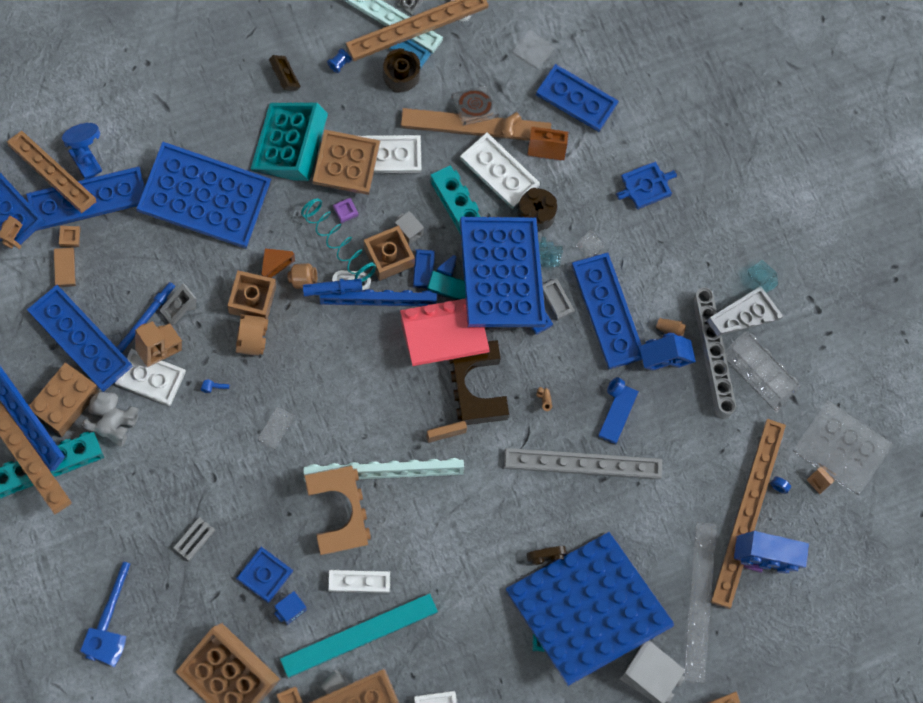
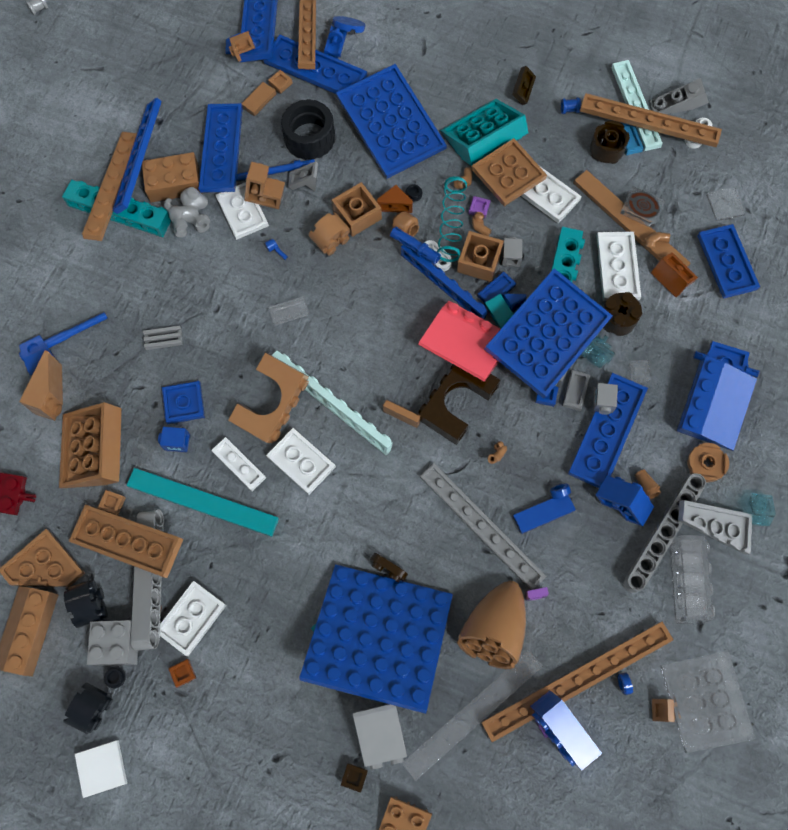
camera: 55 degrees right, 0 degrees up
(140, 239) = (304, 113): none -> black tyre
(150, 666) = (45, 390): none -> medium nougat slope
(281, 242) = (414, 192): none -> black plate
(313, 193) = (467, 176): none -> medium nougat arm
(356, 224) = (478, 224): none -> medium nougat arm
(405, 536) = (301, 461): none -> white plate
(587, 288) = (605, 398): none -> light grey brick
(663, 525) = (496, 627): none -> medium nougat cylinder
(666, 222) = (717, 403): none -> slope
(667, 477) = (536, 594): none -> medium lavender tile
(702, 264) = (715, 455): none -> medium nougat plate

